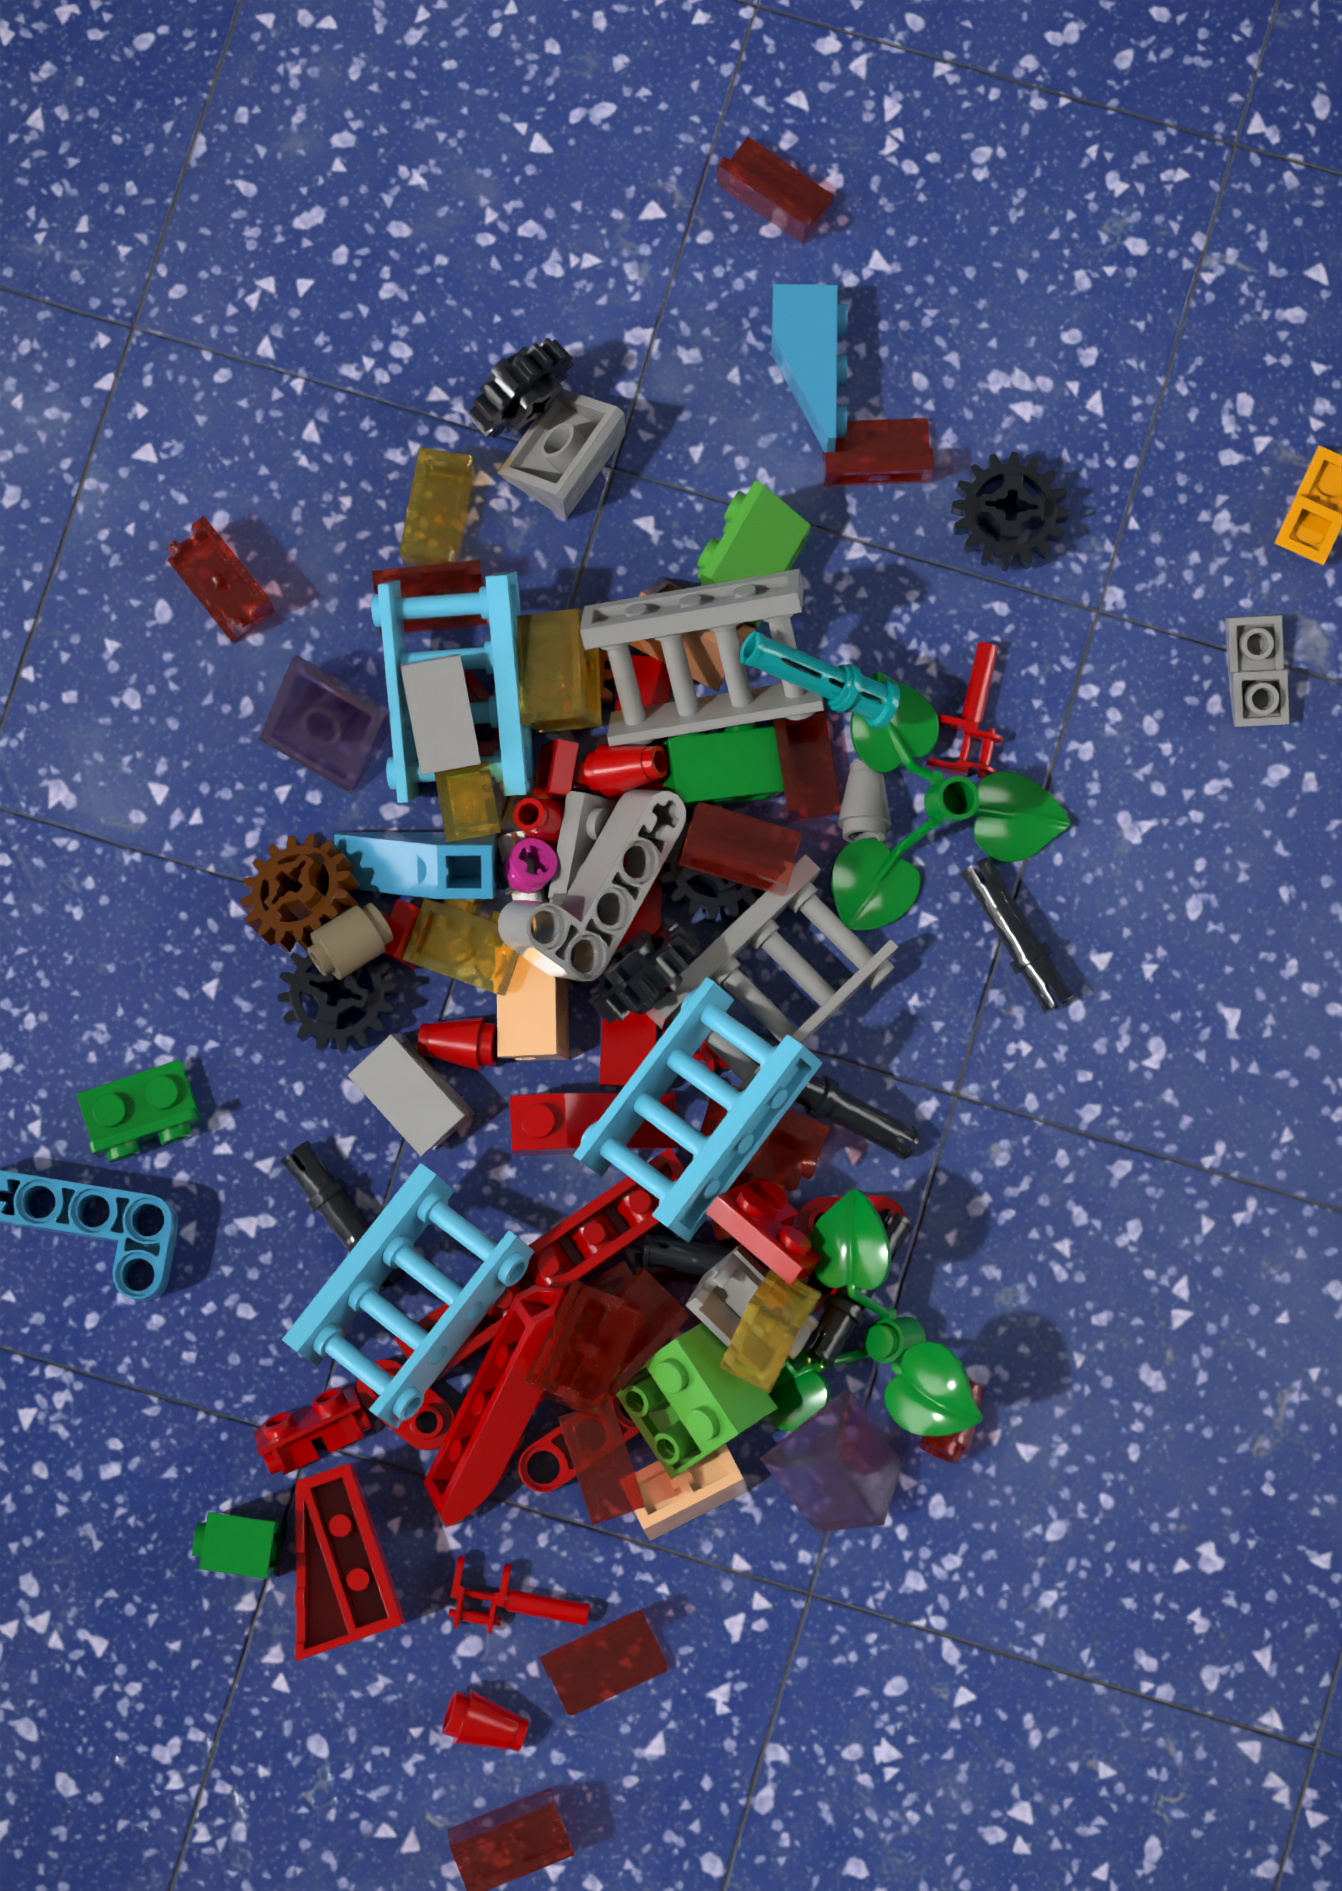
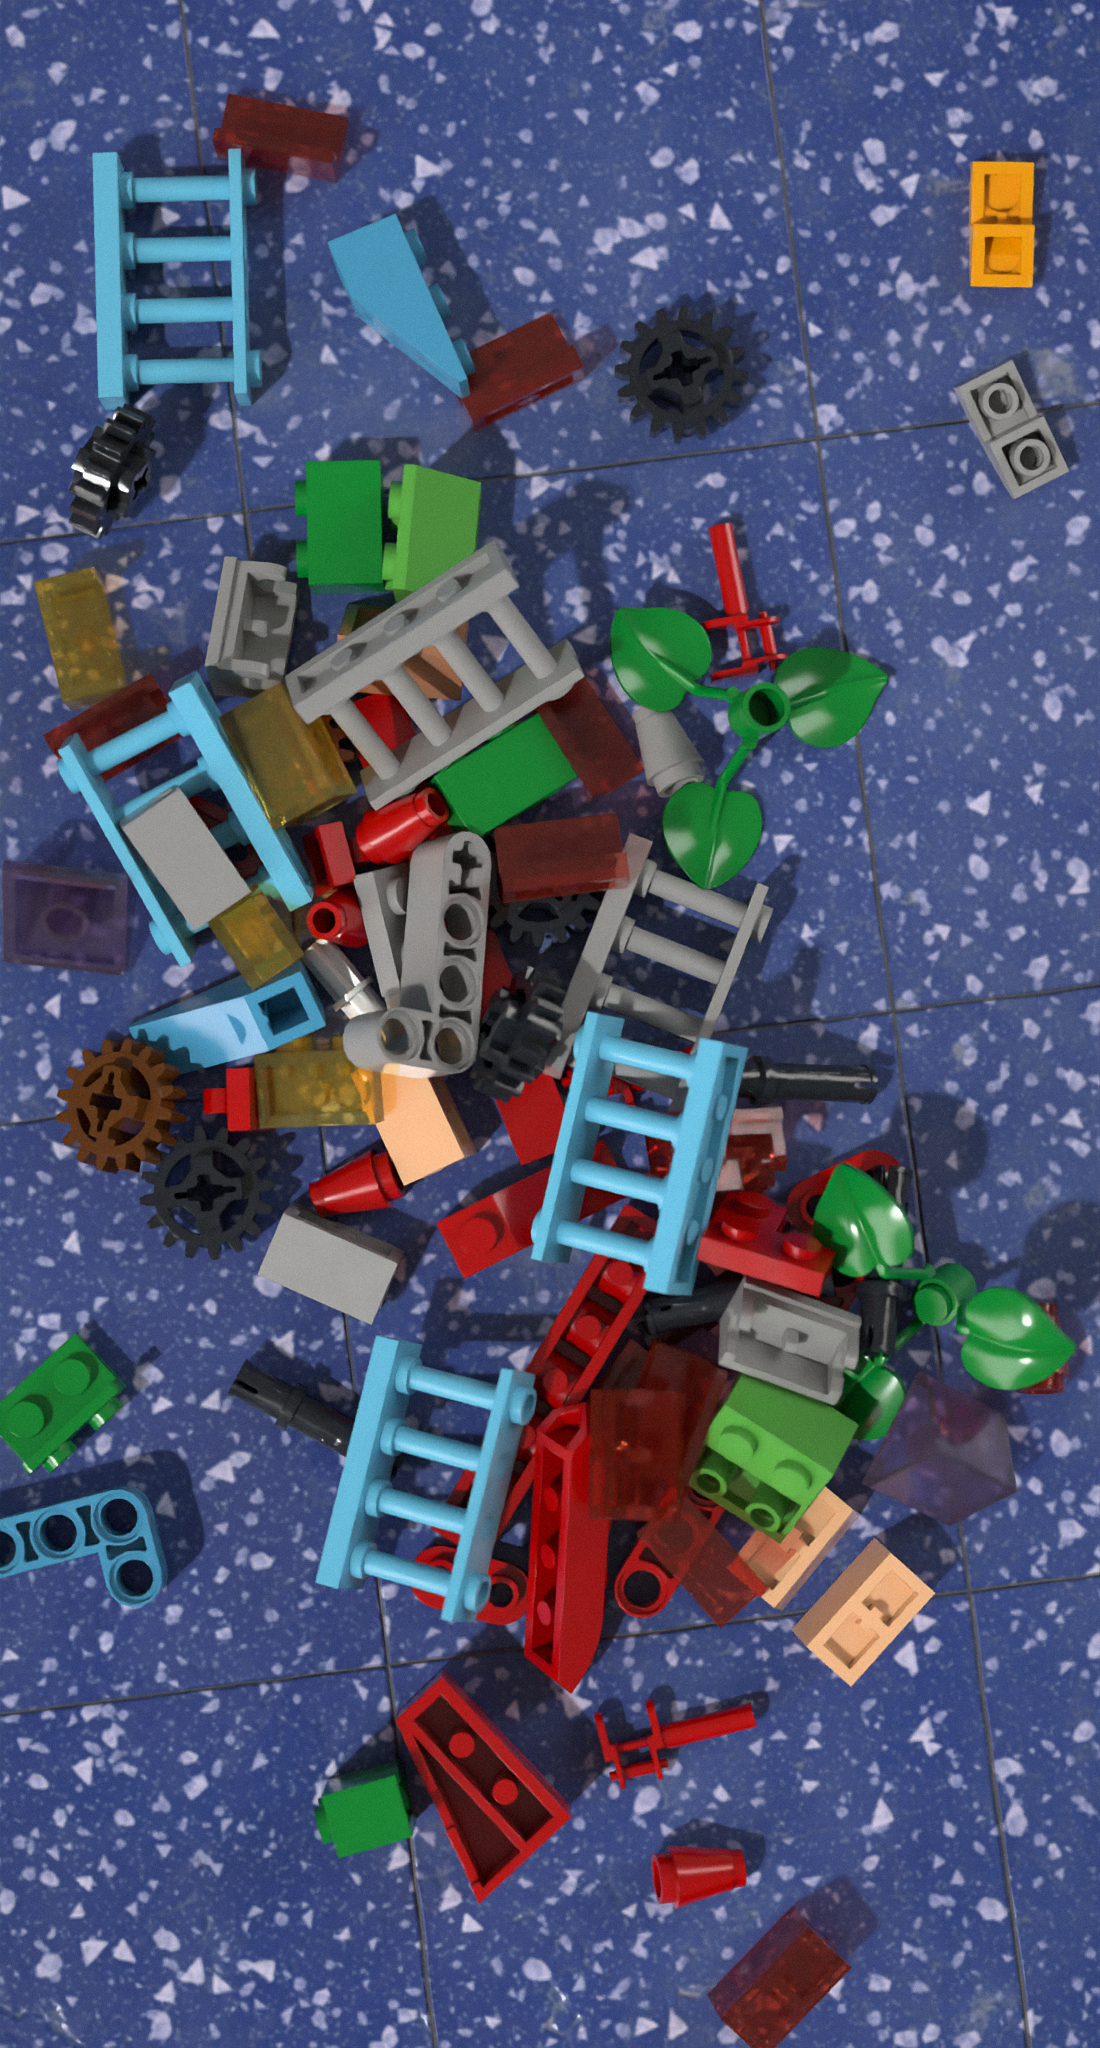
camera: 20 degrees left, 5 degrees up
(289, 1436) = (364, 1672): red hinge -> none
(349, 941) = (197, 1136): dark tan brick -> none
(515, 868) = (336, 984): dark pink bush -> none
(565, 450) = (186, 515): light grey slope -> none
(575, 559) = (251, 628): none -> light grey hinge
(604, 1662) = (791, 1755): clear red panel -> none
(606, 221) = (121, 251): none -> medium azure fence
(685, 514) = (343, 527): none -> green brick
(715, 1568) = (862, 1612): none -> light nougat hinge
(769, 1330) = (818, 1352): clear yellow slope -> none
(838, 685) = (588, 643): teal pin -> none
(1017, 935) = (884, 818): black pin -> none

